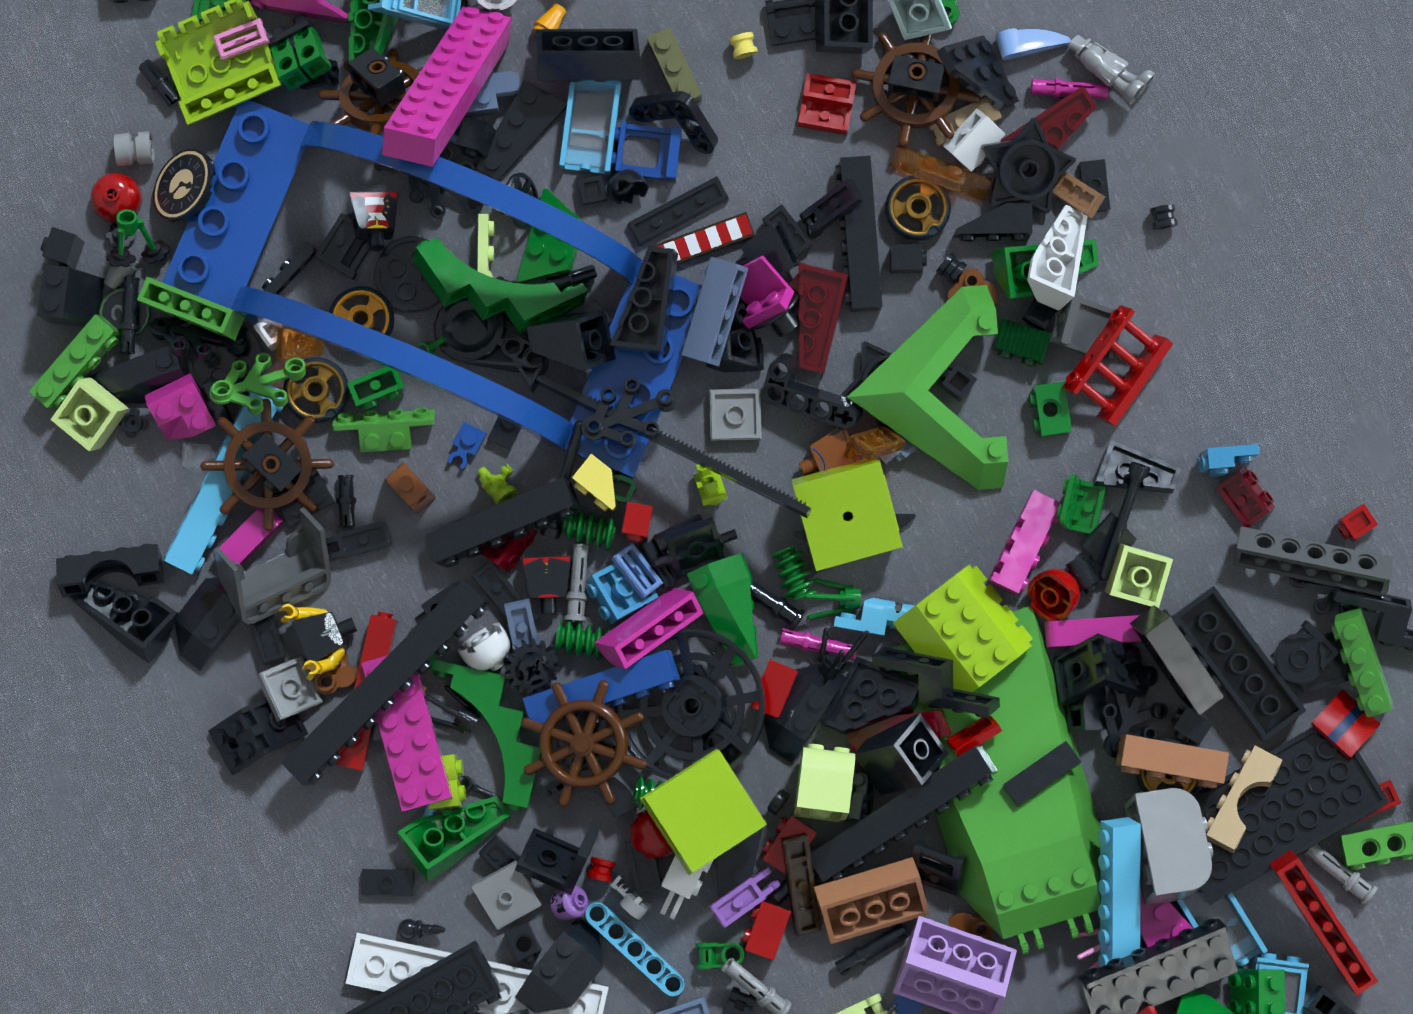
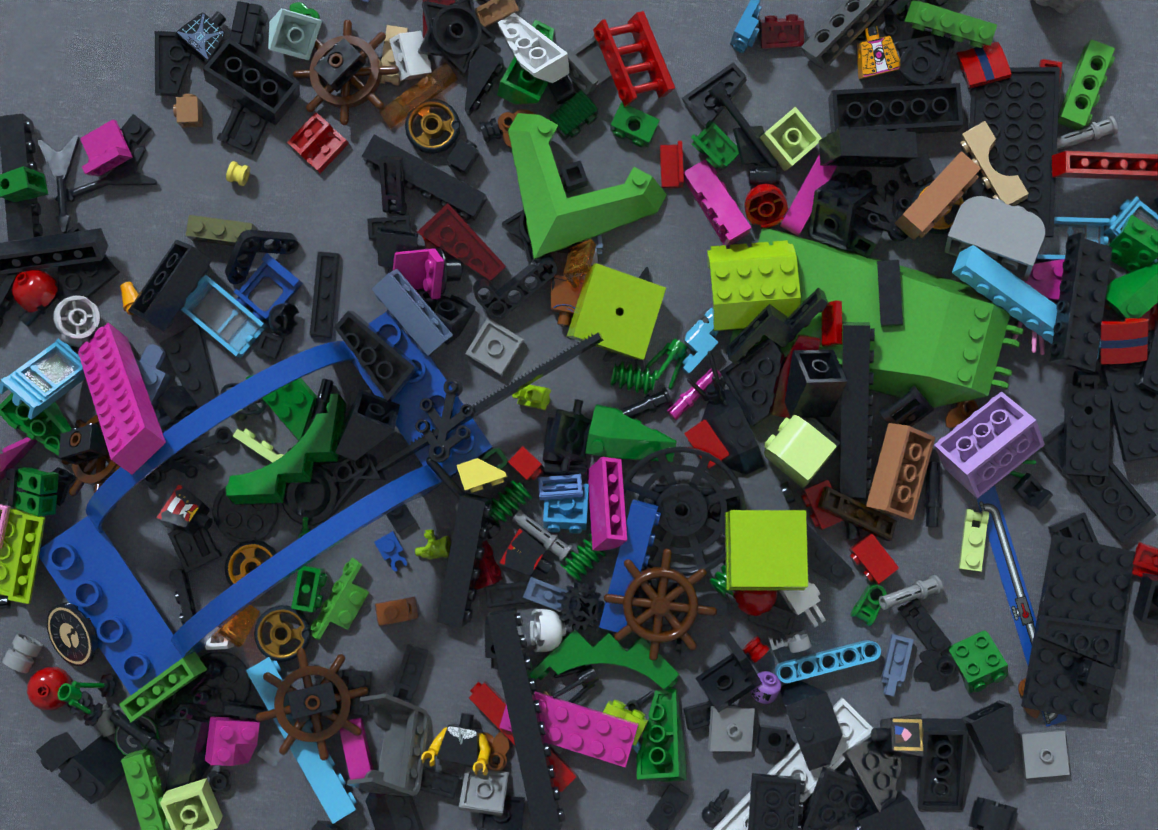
camera: 55 degrees left, 0 degrees up
(227, 391) = (240, 698): bright green plant -> none
(346, 500) = (375, 662): black pin -> none
(710, 238) = (359, 281): tile -> none
(742, 898) = (841, 561): medium lavender hinge -> none
(979, 67) = (356, 19): black plate -> none
(1034, 473) = (671, 166): none -> red panel
(1283, 608) = (876, 55): none -> torso

